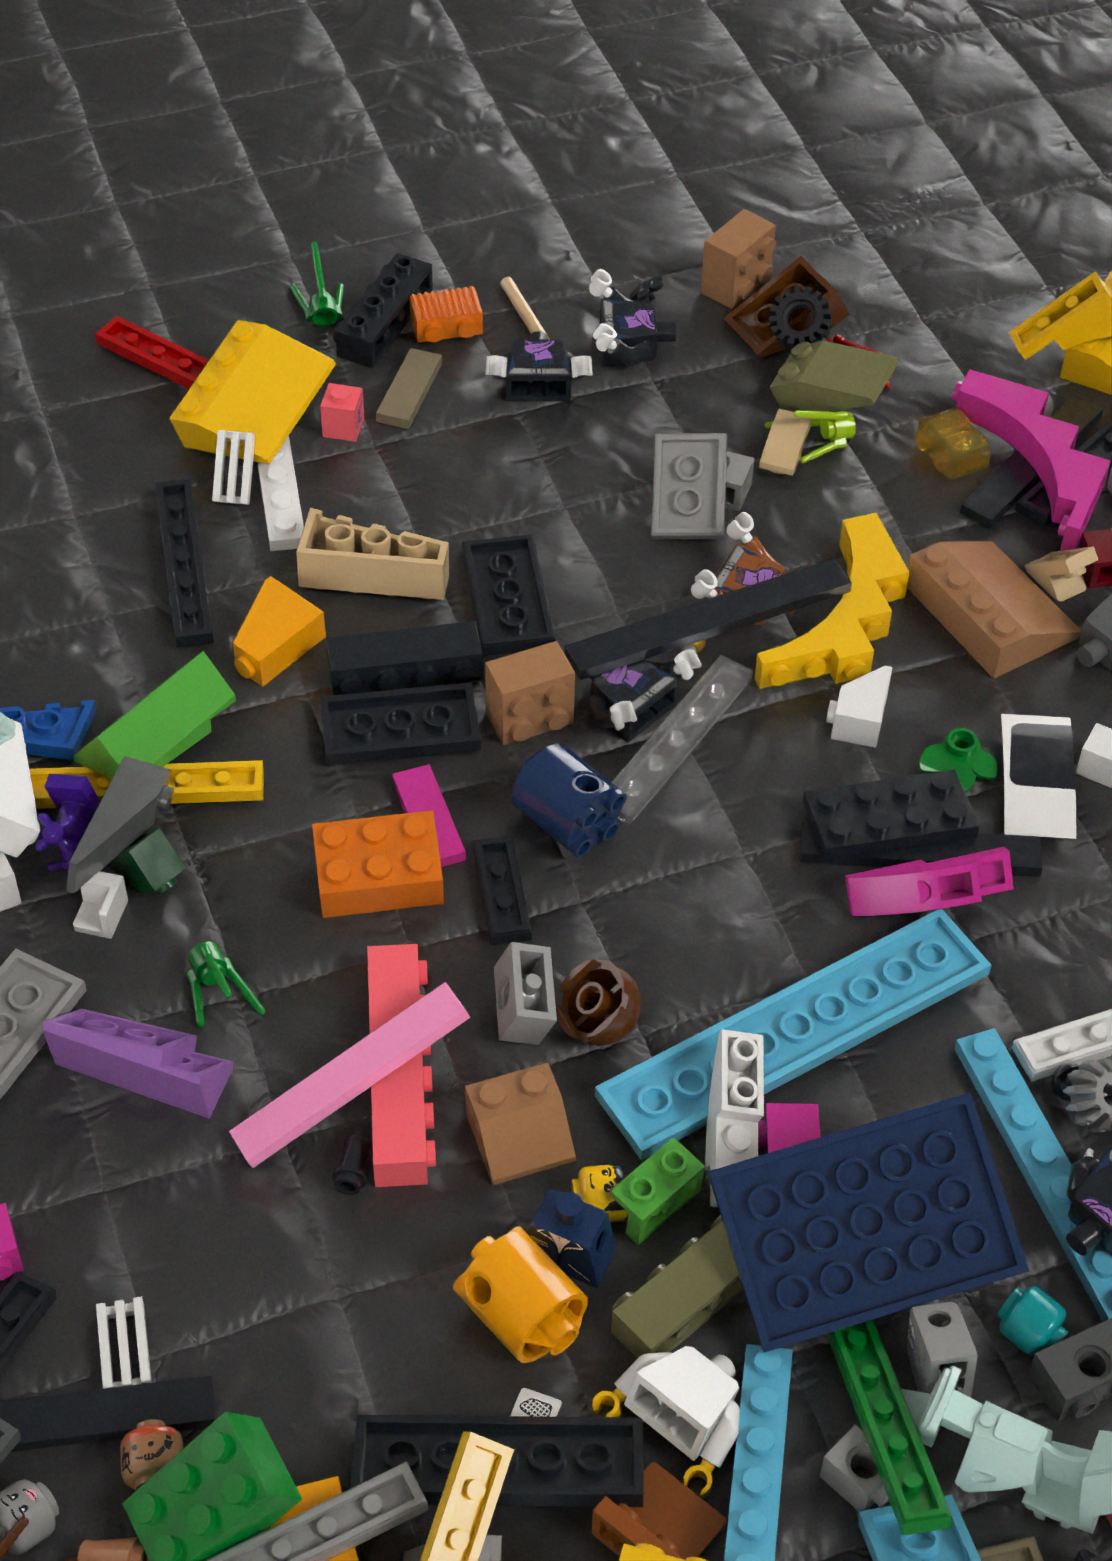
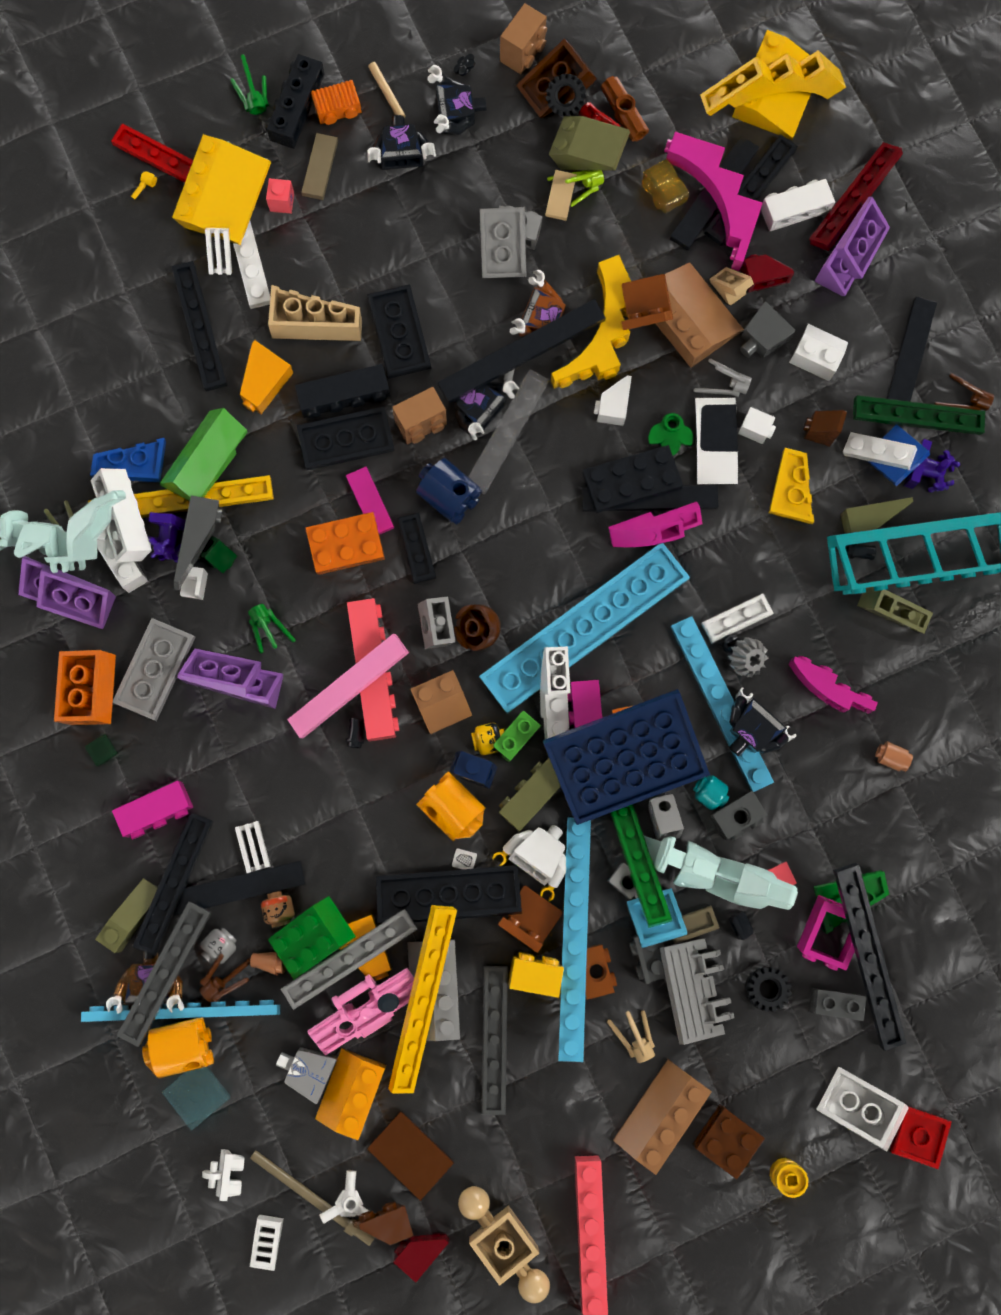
camera: 10 degrees left, 30 degrees up
(138, 383) = (146, 179): none -> yellow hand
(891, 341) = (620, 99): none -> dark orange piece
(920, 565) = (646, 302): none -> dark orange bracket
(1076, 695) = (739, 382): none -> light grey plant

